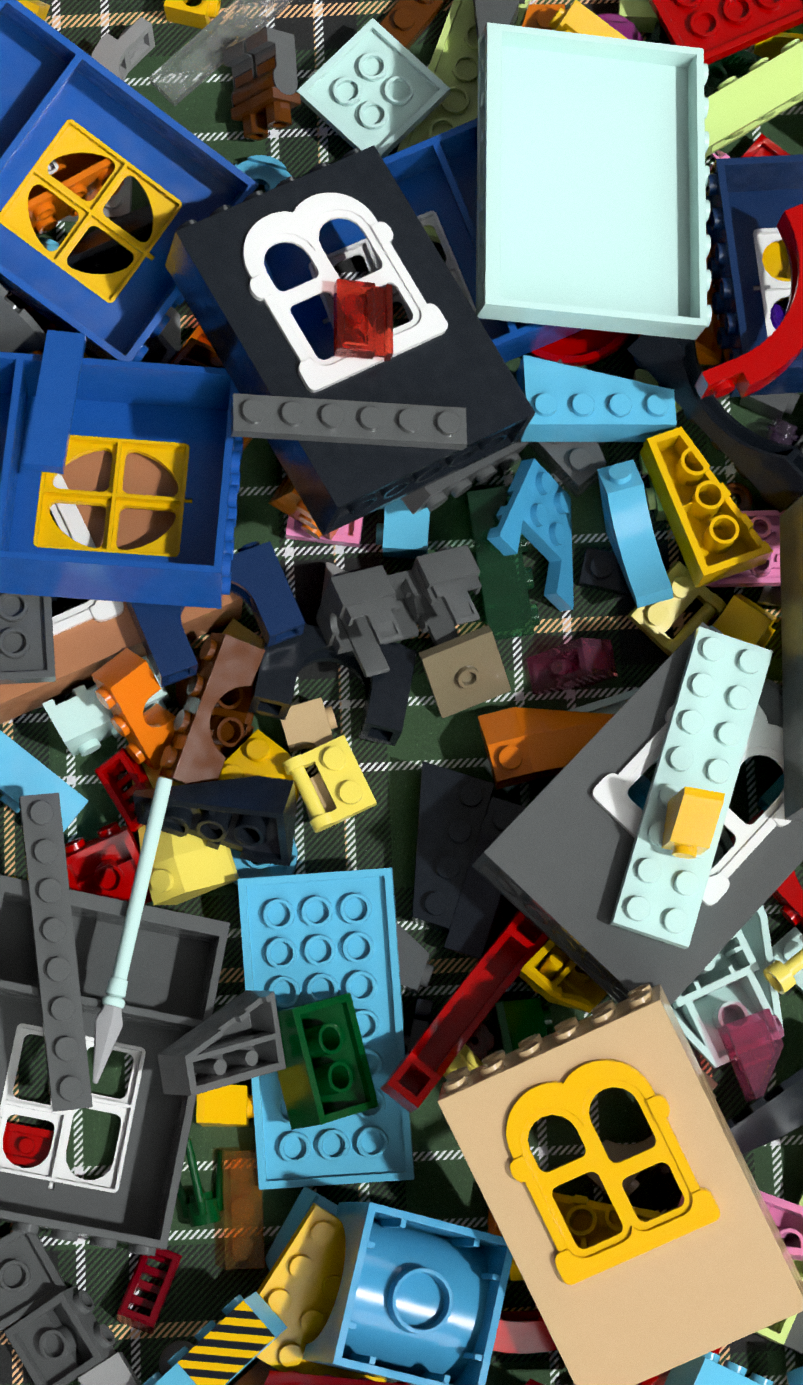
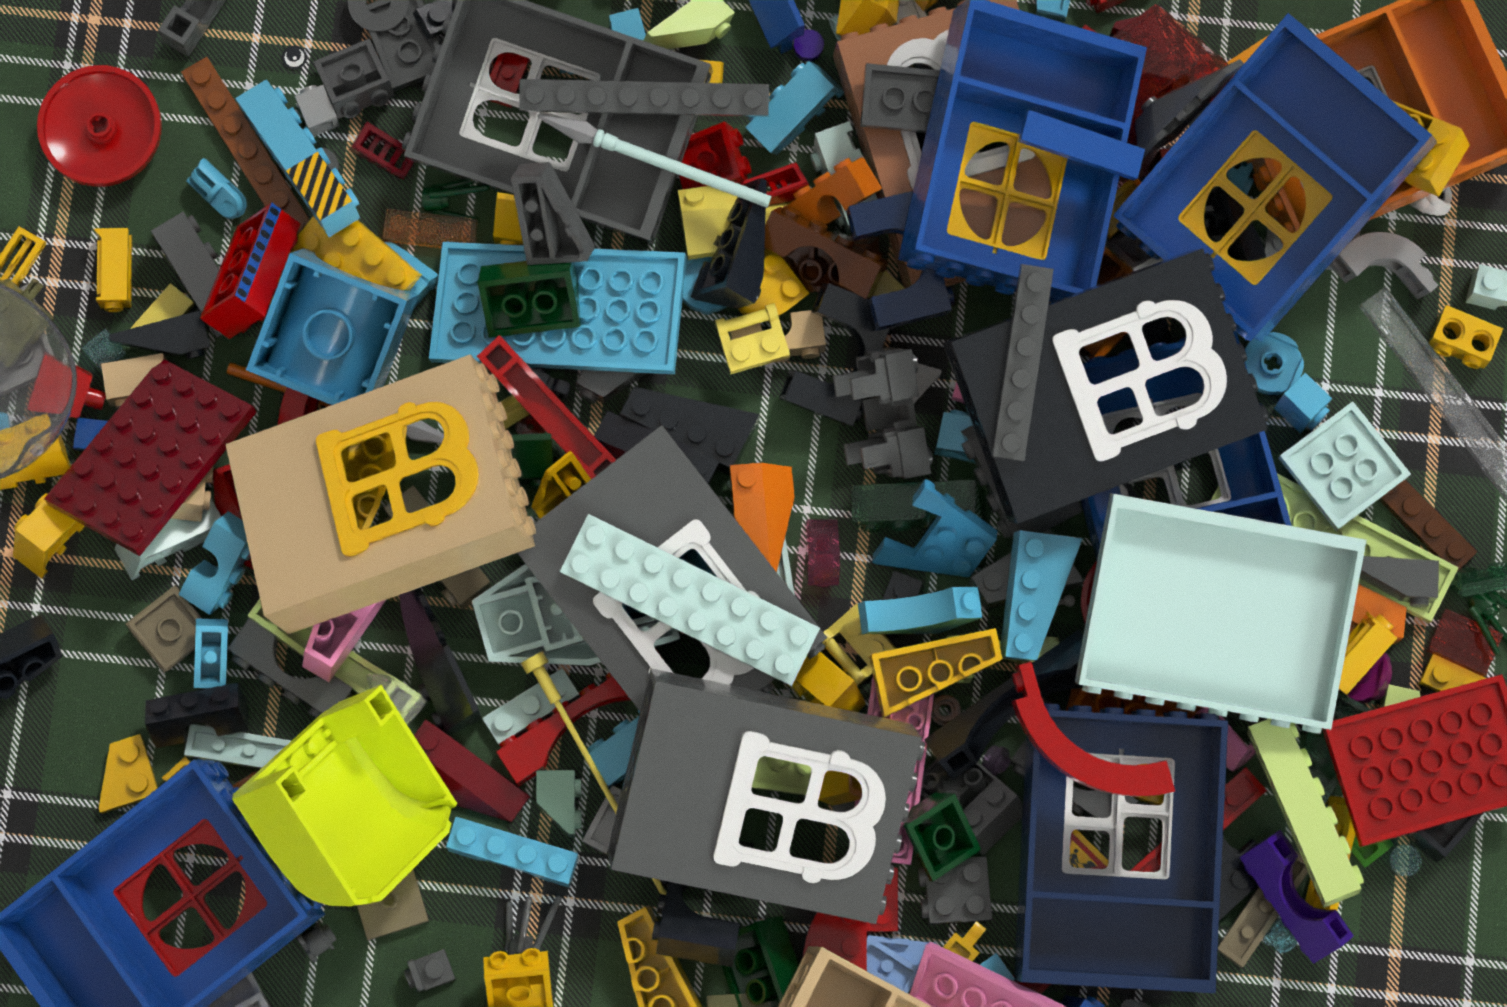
camera: 90 degrees right, 0 degrees up
(263, 81) = (1364, 376): hips -> none
(306, 142) = (1304, 404): none -> medium azure brick
(363, 320) = (1107, 386): clear red plate -> none
(465, 671) = (830, 462): dark tan plate -> none
(691, 821) = (652, 581): yellow slope -> none
(753, 1050) = (480, 629): clear pink slope -> none

